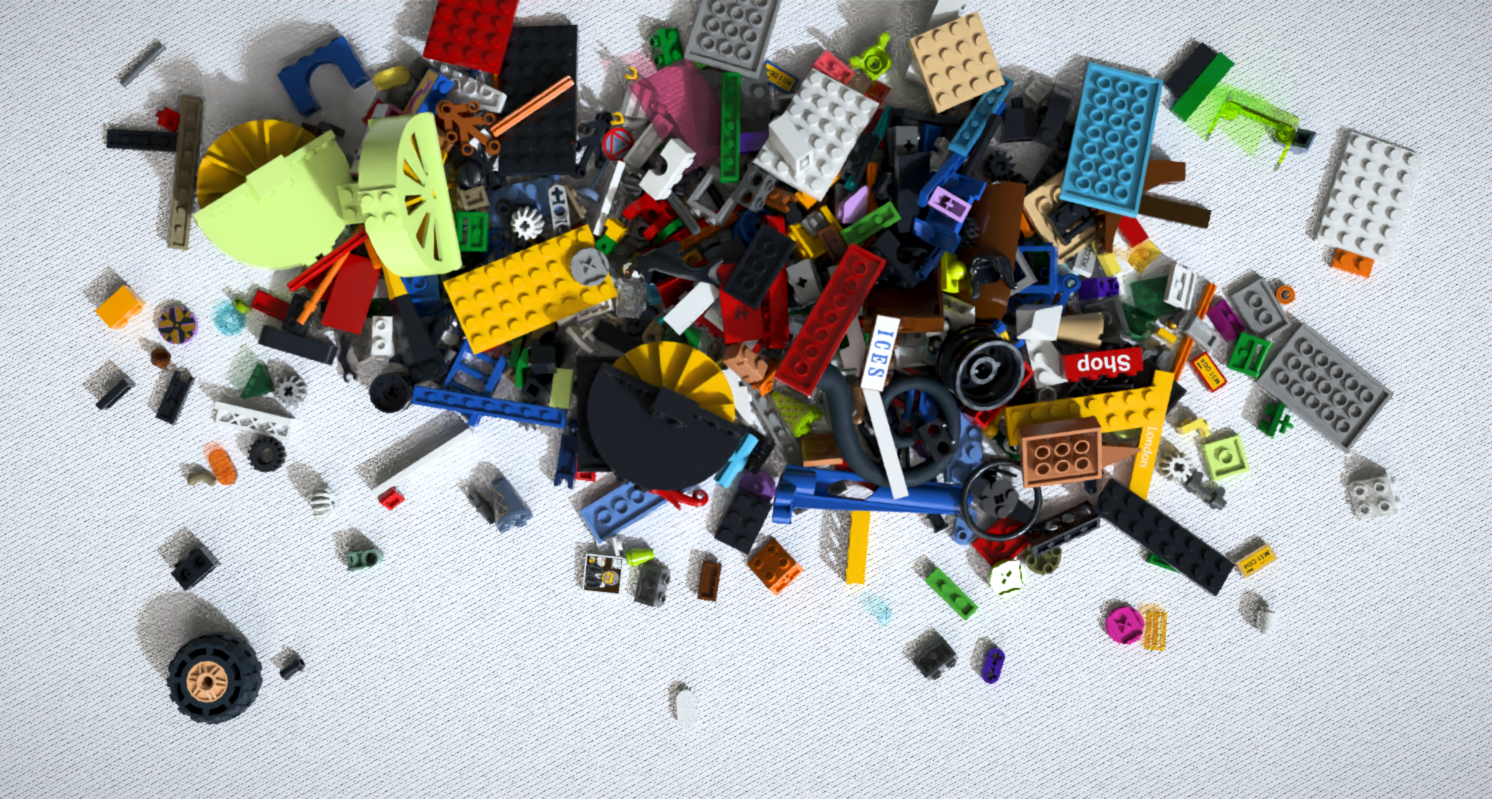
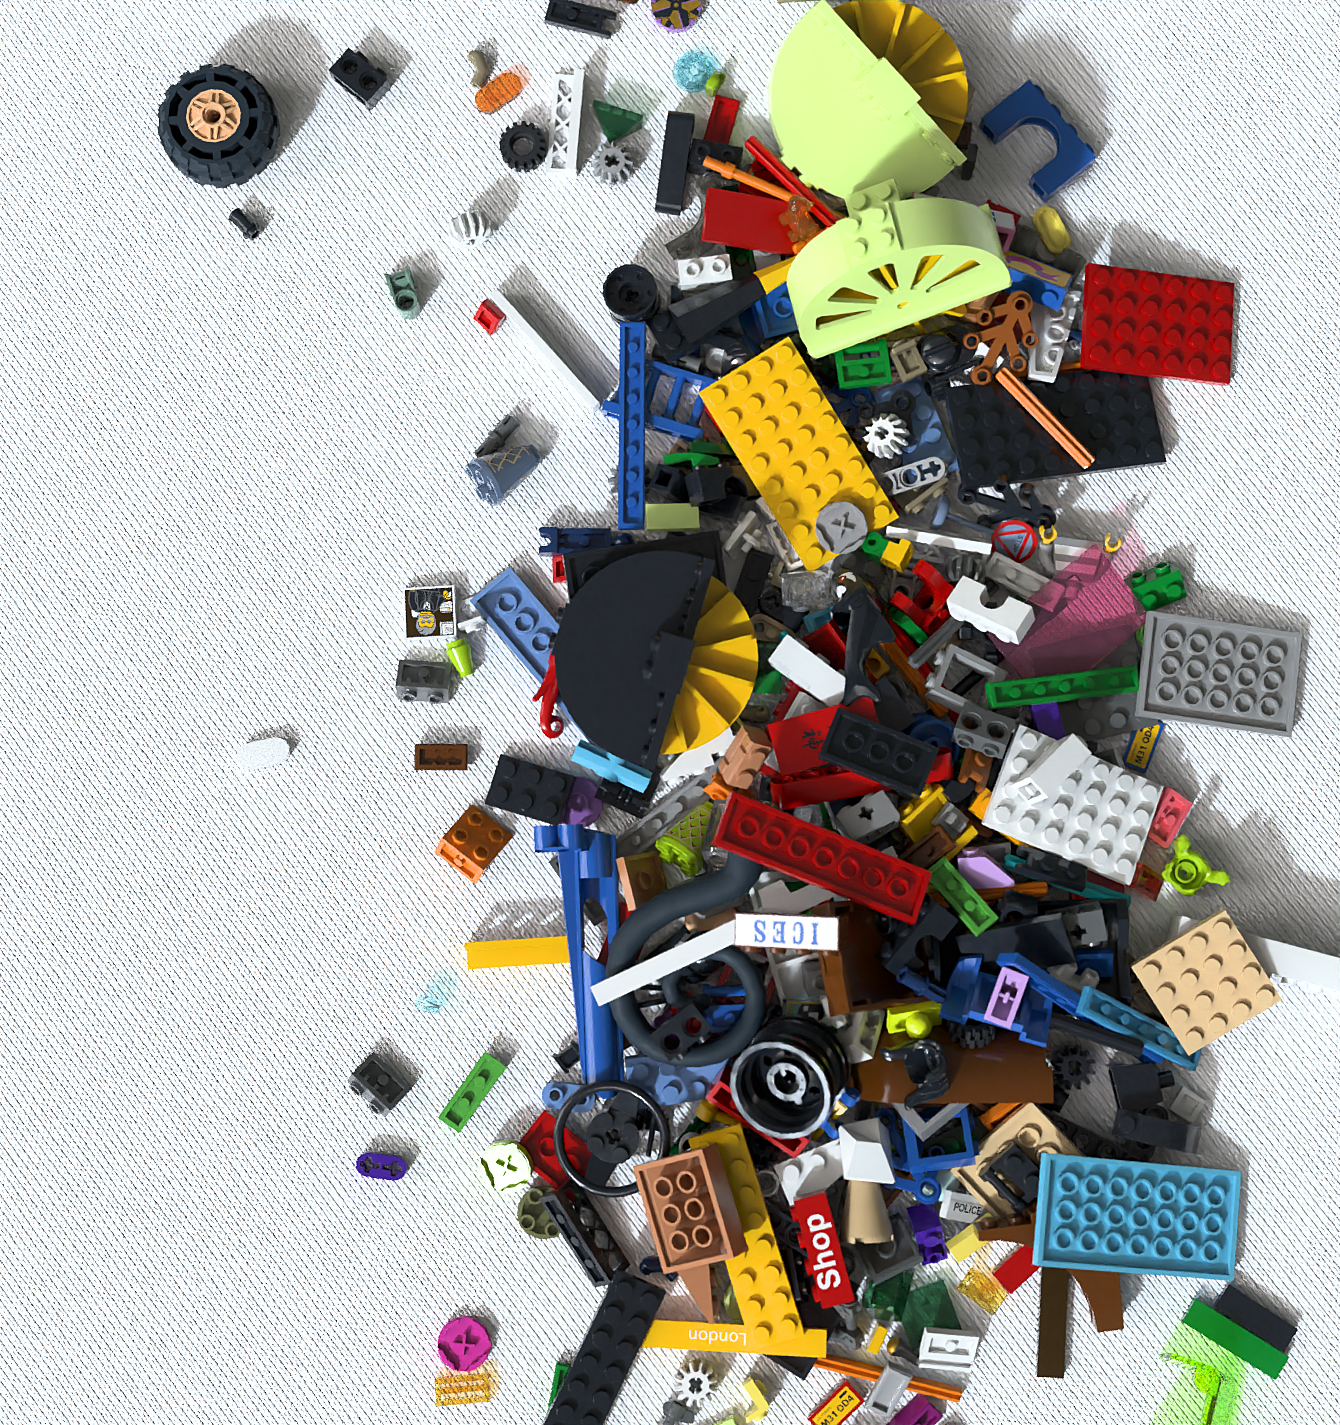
camera: 85 degrees right, 5 degrees down
(343, 359) = (665, 225): black piece -> none
(355, 260) = (799, 218): none -> clear orange animal

